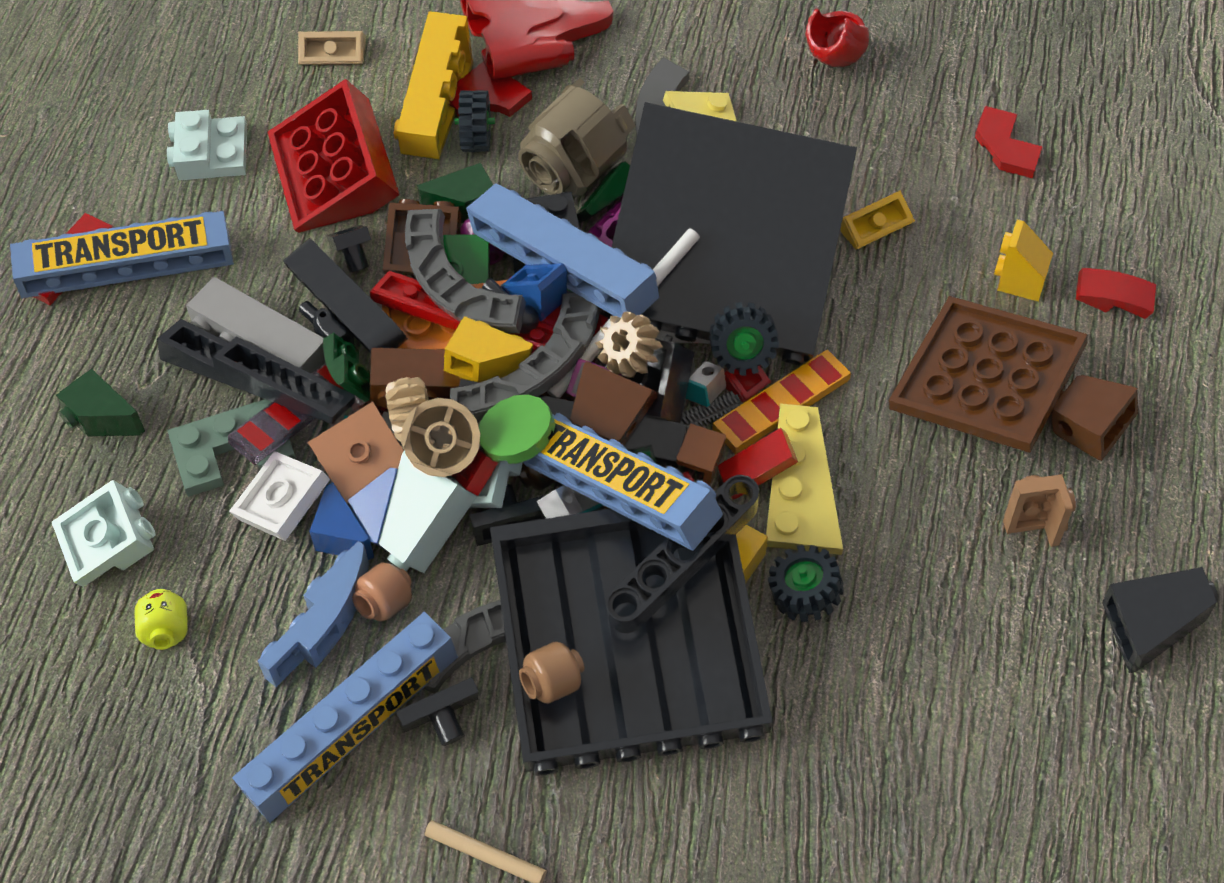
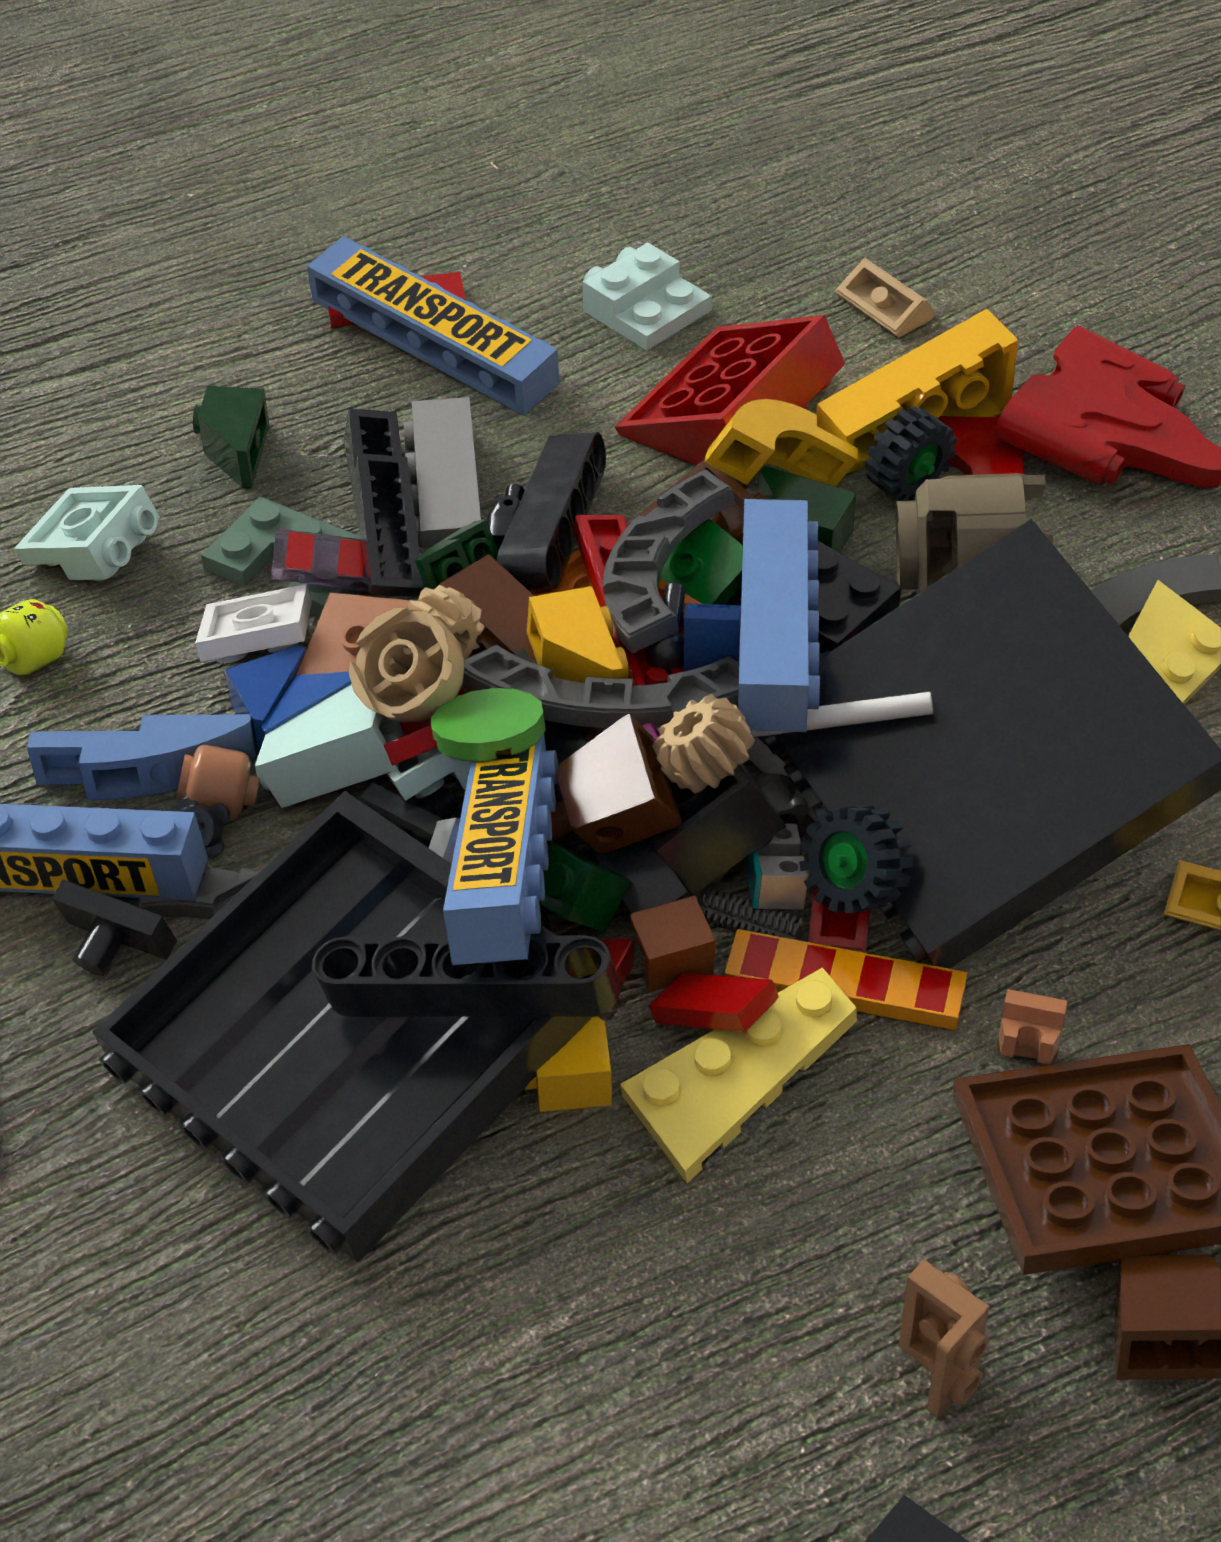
camera: 50 degrees right, 10 degrees down
(350, 243) = (632, 469): black tile -> none
(393, 618) = (214, 819): none -> black plate
(414, 168) = (781, 437): none -> yellow arch
(551, 672) = (209, 967): medium nougat head -> none
(806, 583) = (591, 1159): black wheel -> none
(887, 347) = (1031, 1026): none -> nougat tile

